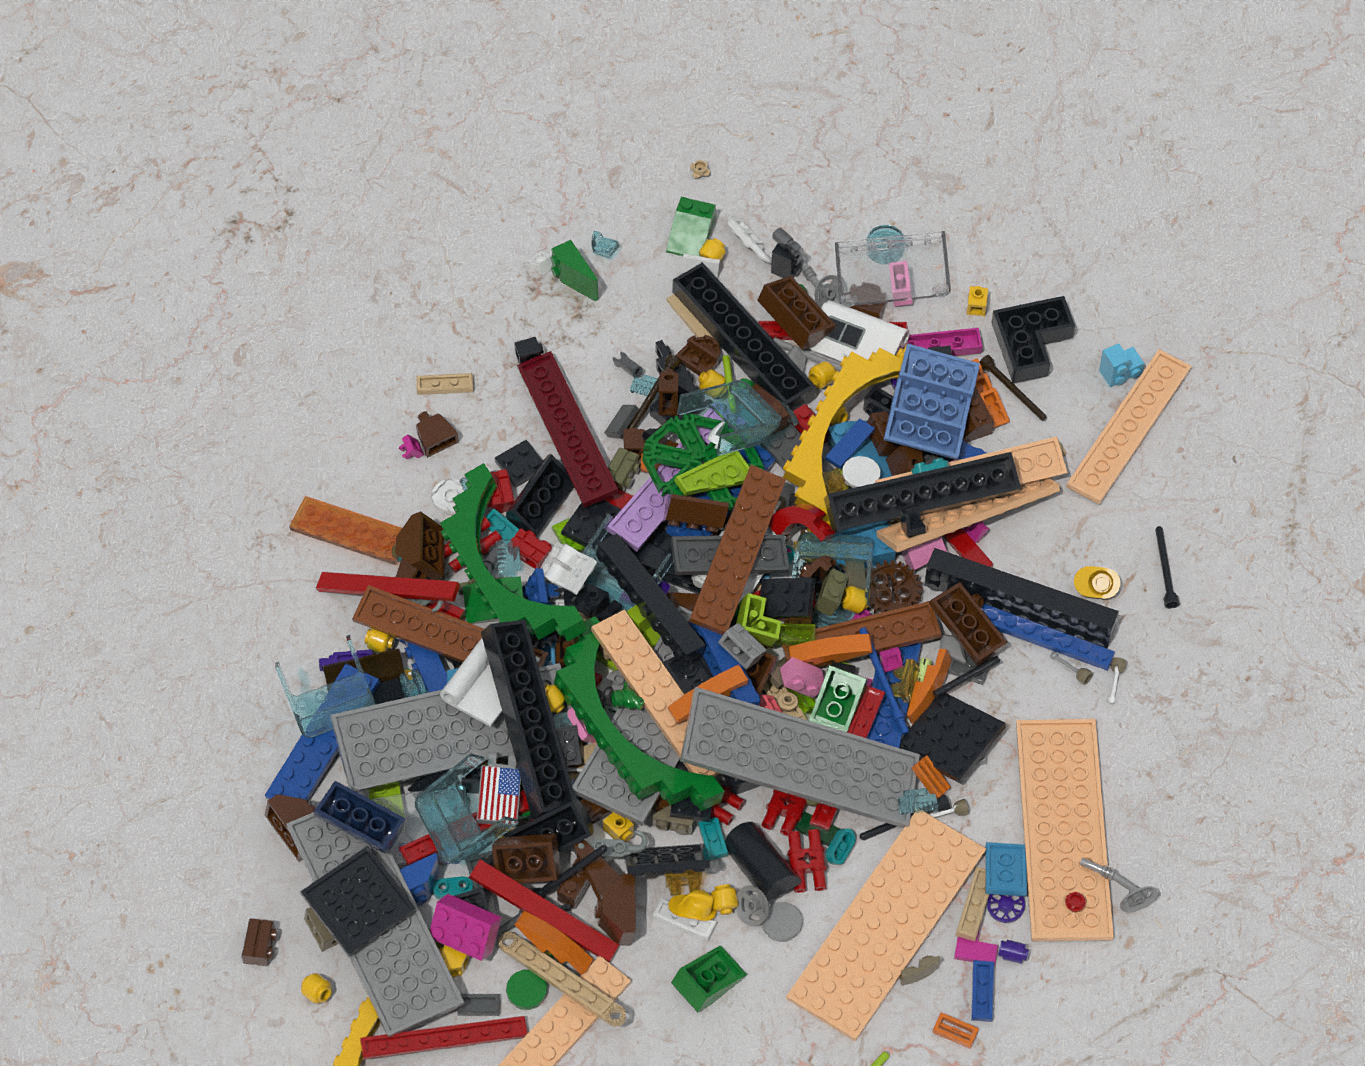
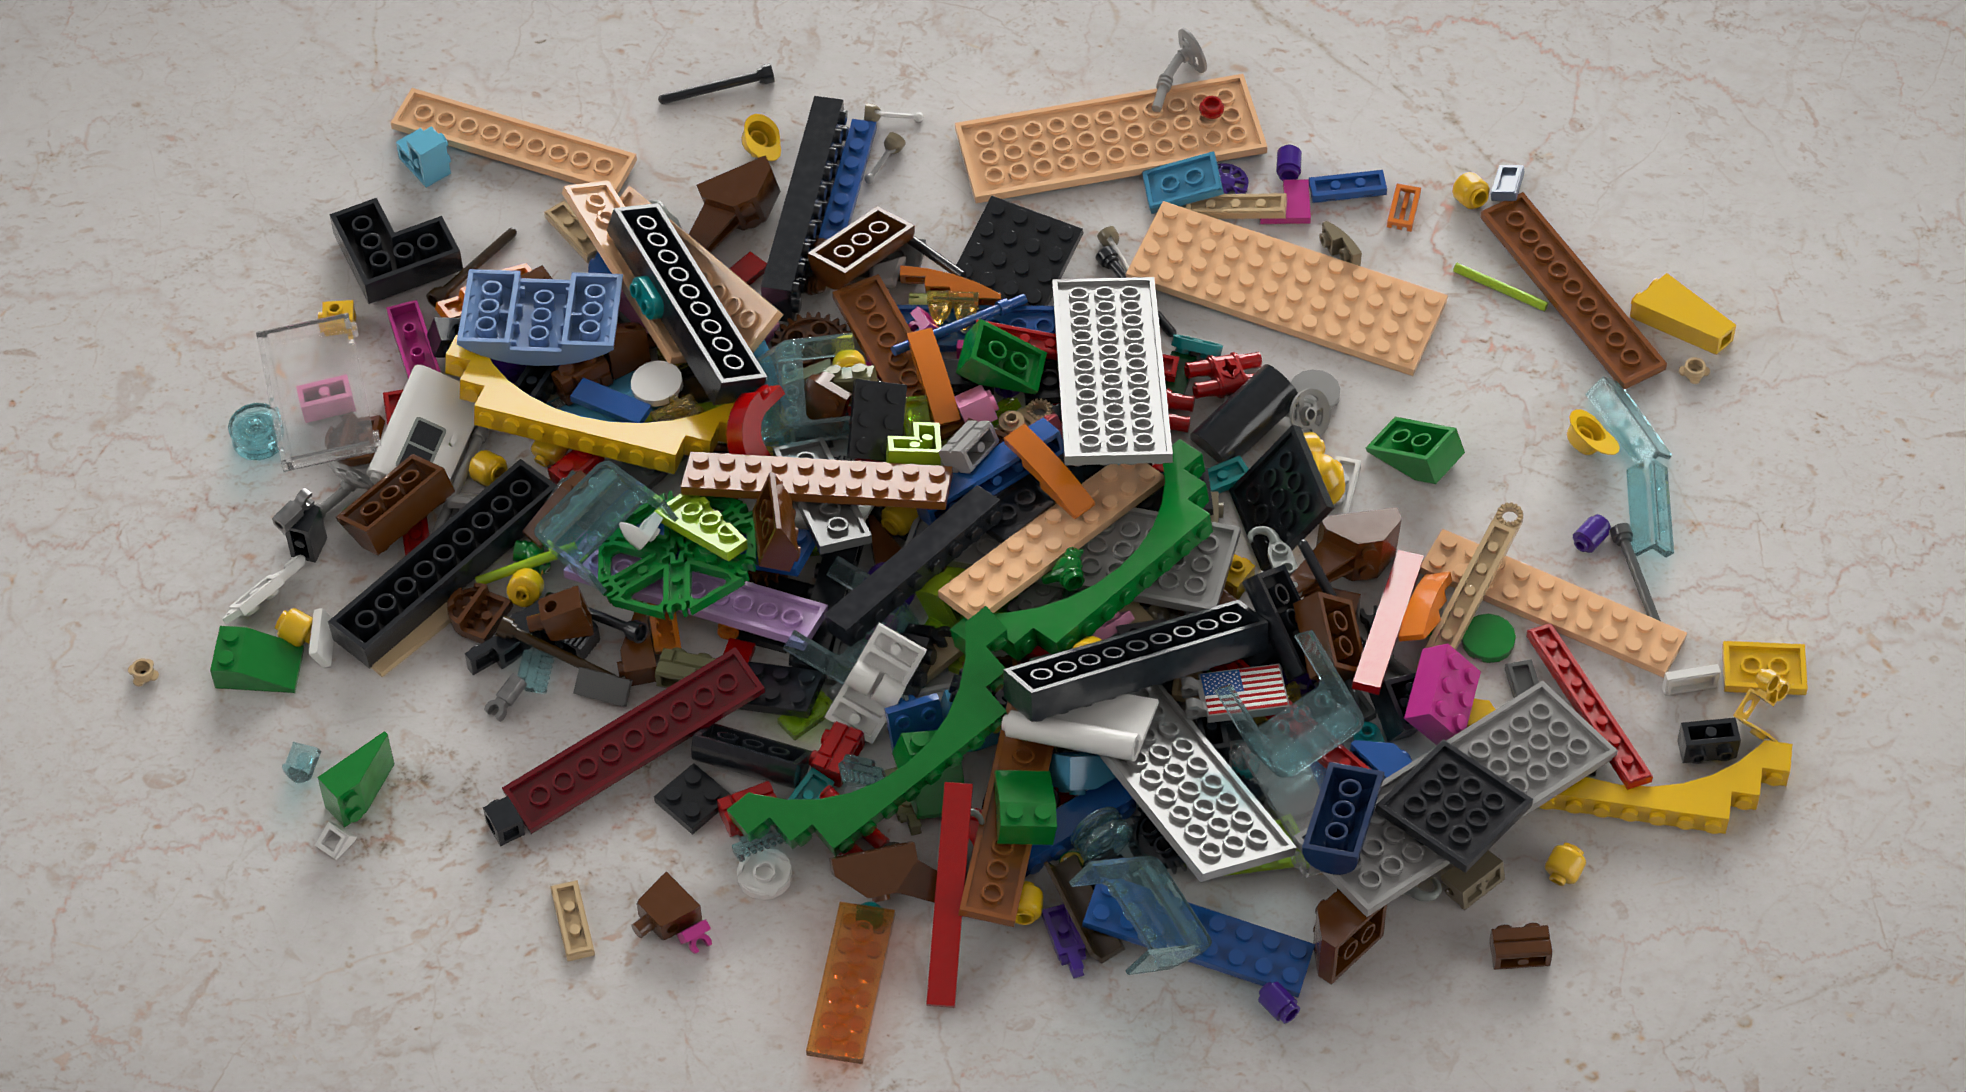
camera: 100 degrees left, 5 degrees down
(260, 779) = (1278, 1002): none -> dark purple brick
(438, 636) = (1025, 807): none -> green slope
(911, 521) = (737, 305): black panel -> none
(917, 797) = (1120, 271): clear light blue piece -> none
(933, 775) = (1079, 266): orange tile -> none
(1027, 544) = (732, 202): none -> reddish brown slope

